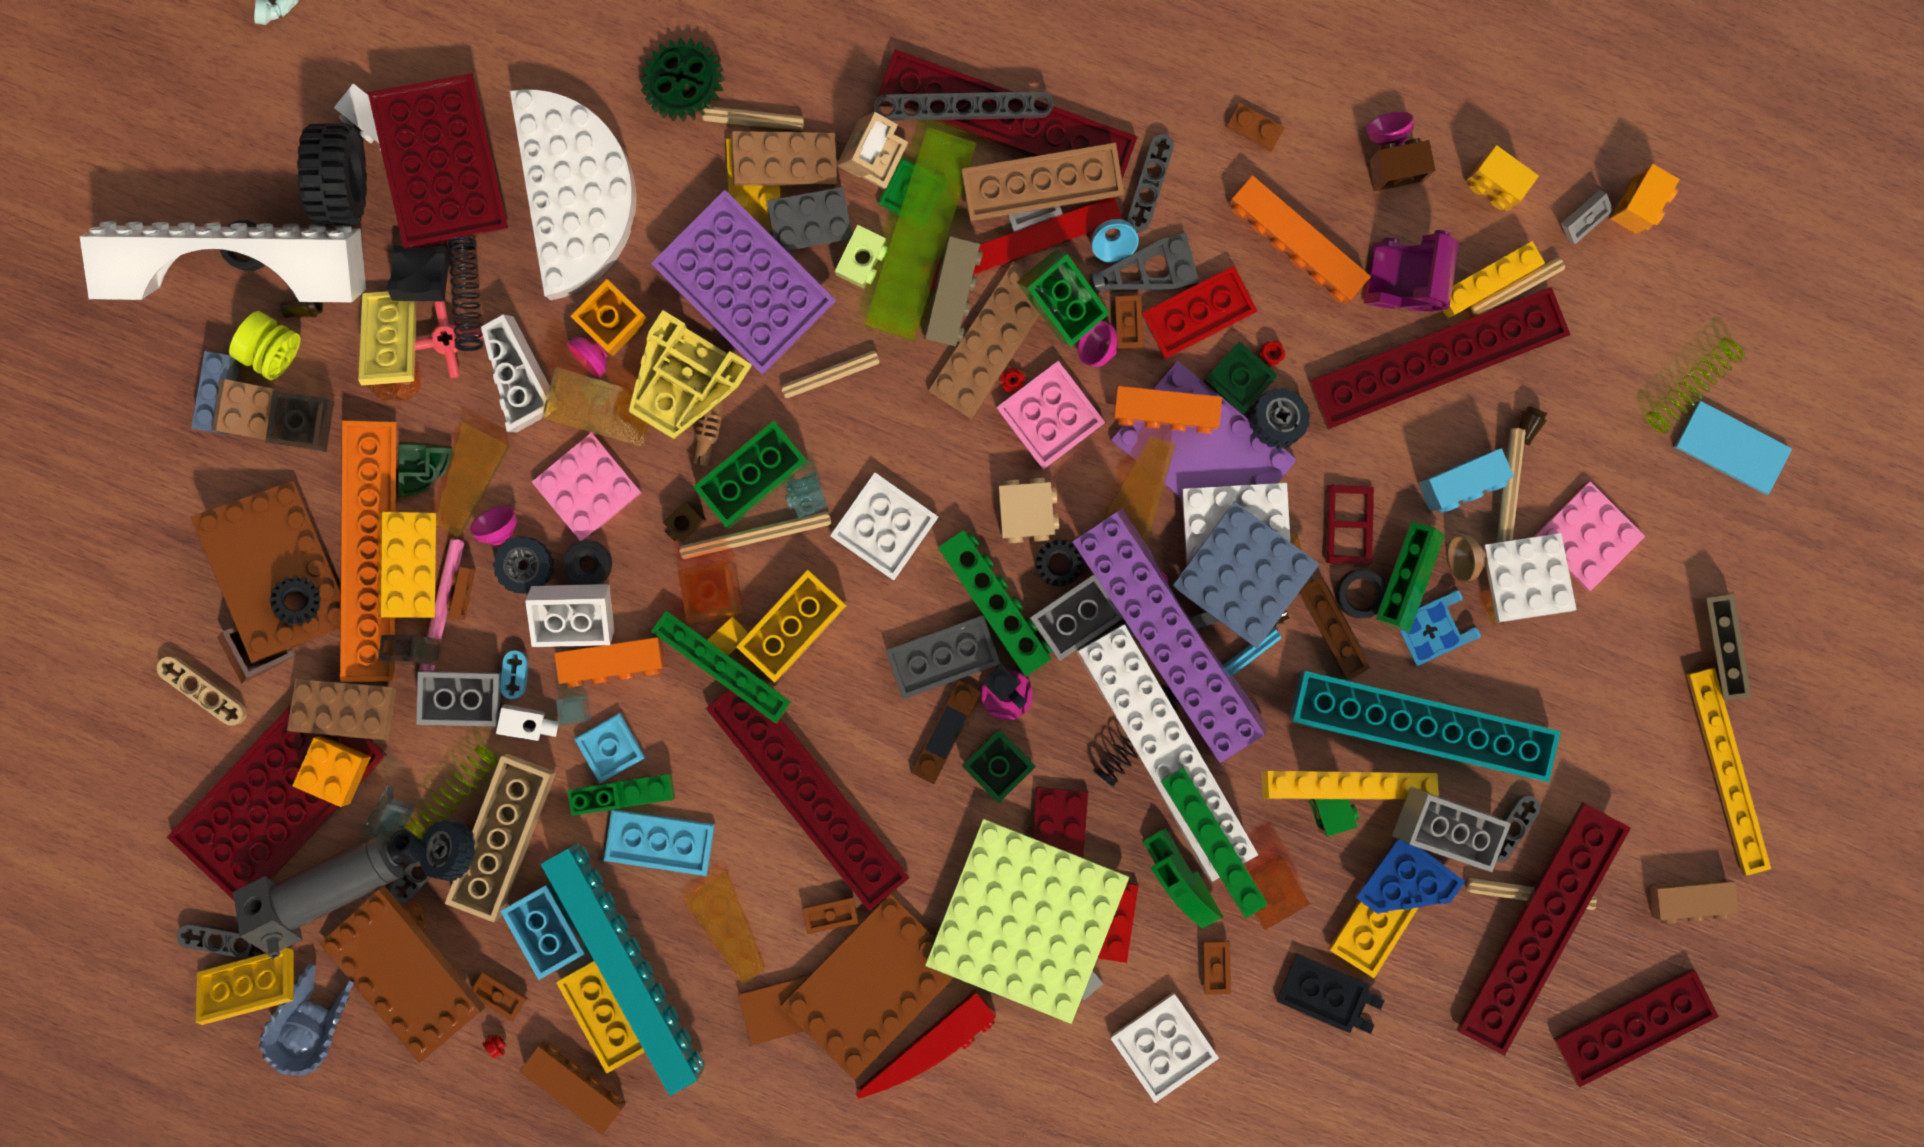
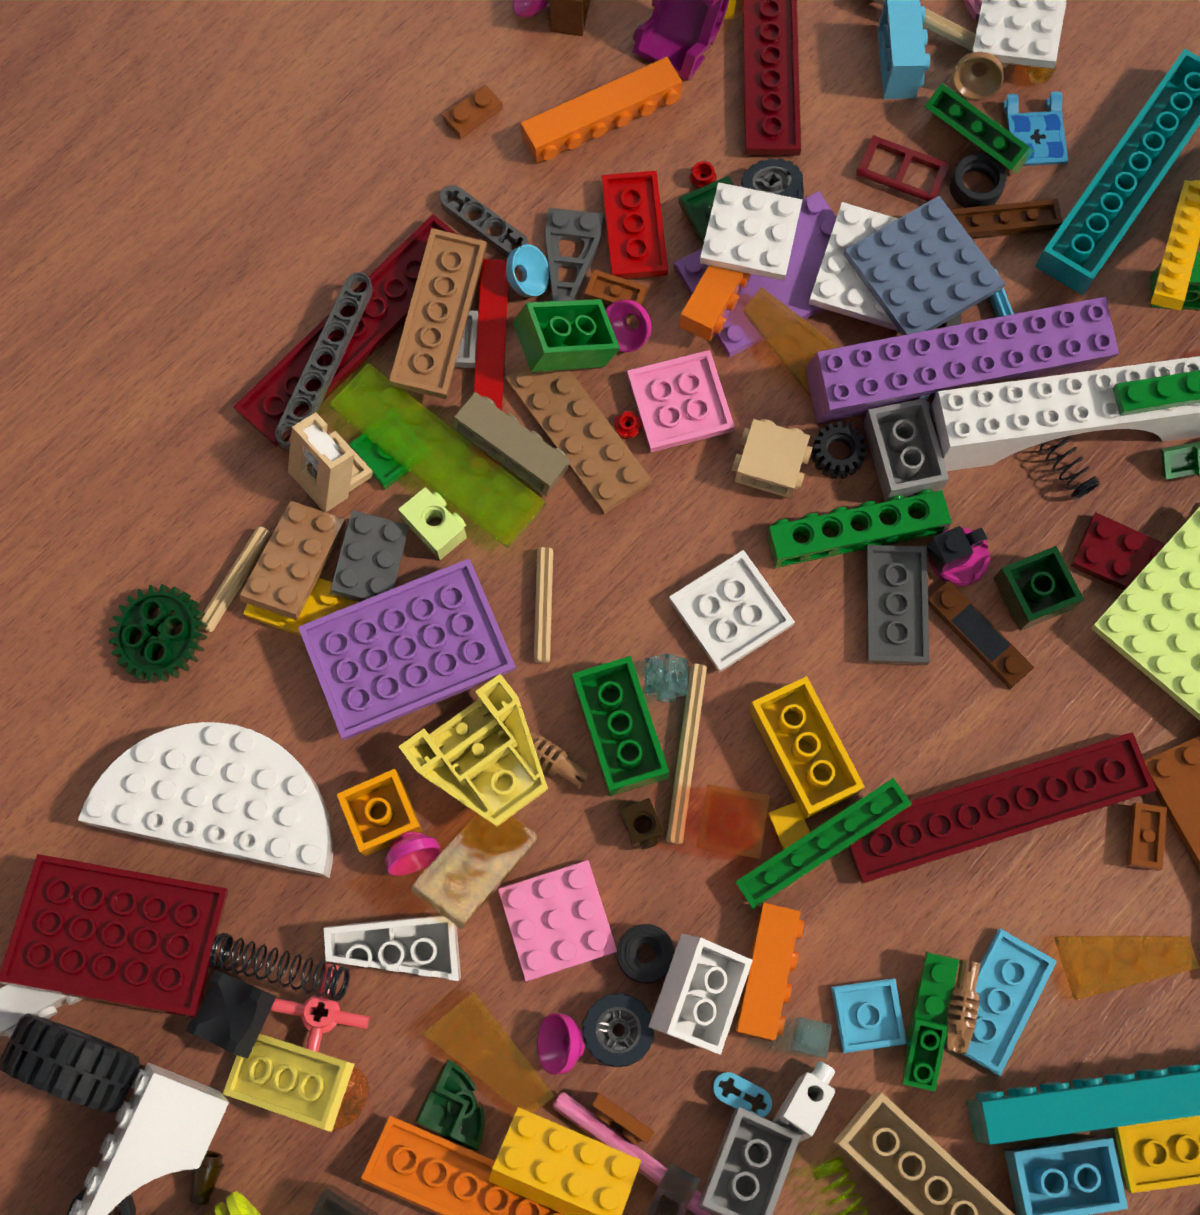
camera: 70 degrees left, 15 degrees down
(638, 815) = (963, 1008): none -> medium nougat hinge
(1217, 415) = (751, 231): none -> white plate

